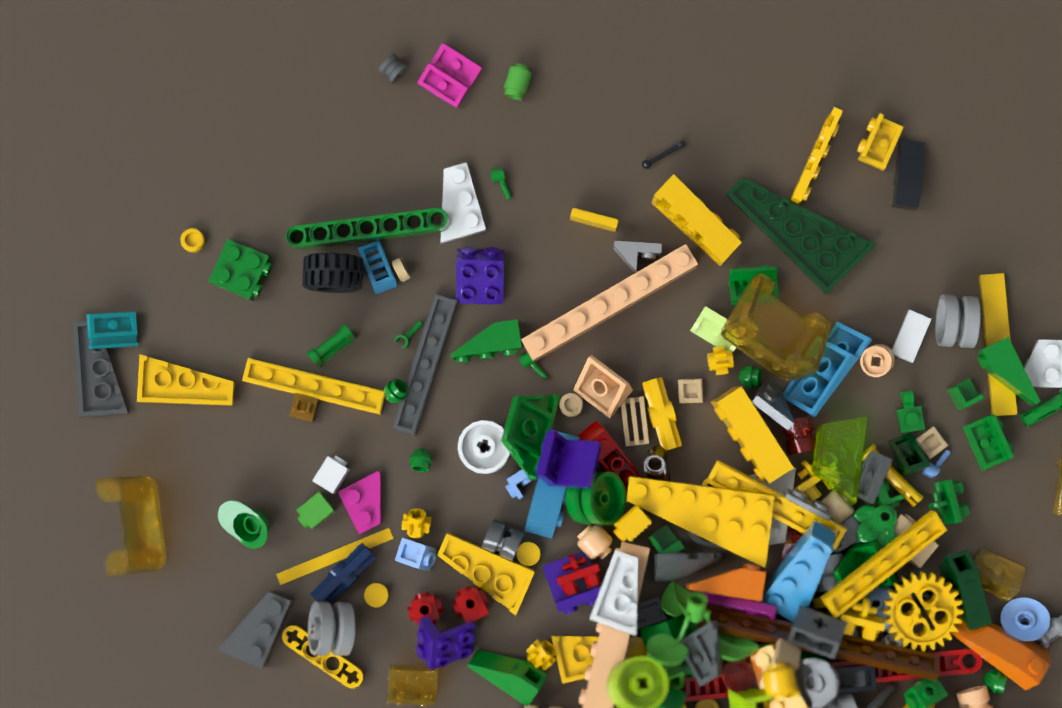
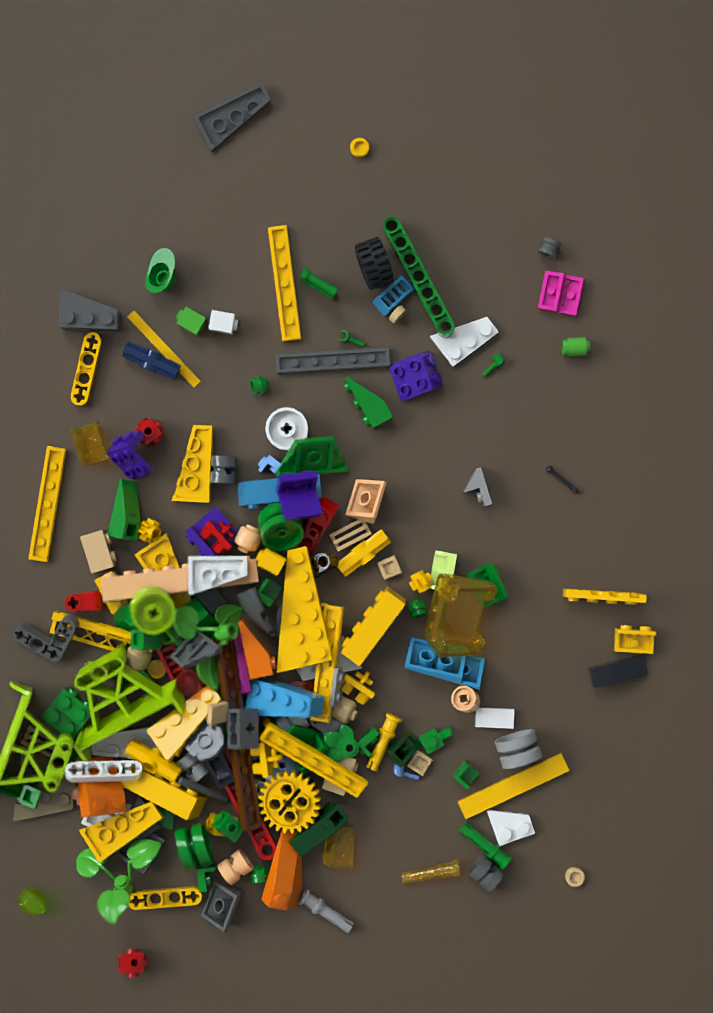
camera: 70 degrees right, 5 degrees up
(112, 330) = (267, 114): teal plate -> none
(139, 524) = (130, 193): clear yellow windscreen -> none
(180, 385) = (245, 177): yellow wing -> none
(241, 270) = (350, 193): green plate -> none
(304, 408) = (265, 282): pearl gold tile -> none
(331, 628) = (108, 367): light grey wheel -> none
(364, 502) = (212, 354): dark pink wing -> none
(376, 595) = (147, 391): yellow tile -> none
(395, 391) = (304, 346): green plate -> none
(416, 523) = (211, 400): yellow gear -> none
(416, 554) = (187, 409): light blue bracket -> none
(478, 610) = (159, 464): red brick -> none
(526, 361) = (365, 436): green hand -> none
(528, 554) = (220, 492): yellow tile -> none
(571, 404) = (344, 482): tan tile -> none
(594, 219) = (491, 445): yellow tile -> none
(609, 303) = (432, 481): light nougat brick -> none
(696, 220) = (520, 523): yellow wedge -> none
(773, 404) = (402, 633): dark grey wing -> none
(779, 680) = (195, 714): yellow head -> none
(800, 436) = (385, 663): clear red wheel -> none
(809, 240) = (538, 614): dark green wing -> none
(840, 455) = (382, 697): clear neon green wing -> none
(872, 476) = (374, 725): dark grey wing -> none
(947, 503) = (378, 790): green hips -> none
(988, 441) = (436, 805): green bracket -> none
(1005, 366) = (498, 796): green slope -> none
(1027, 611) = (321, 880): light blue dish -> none

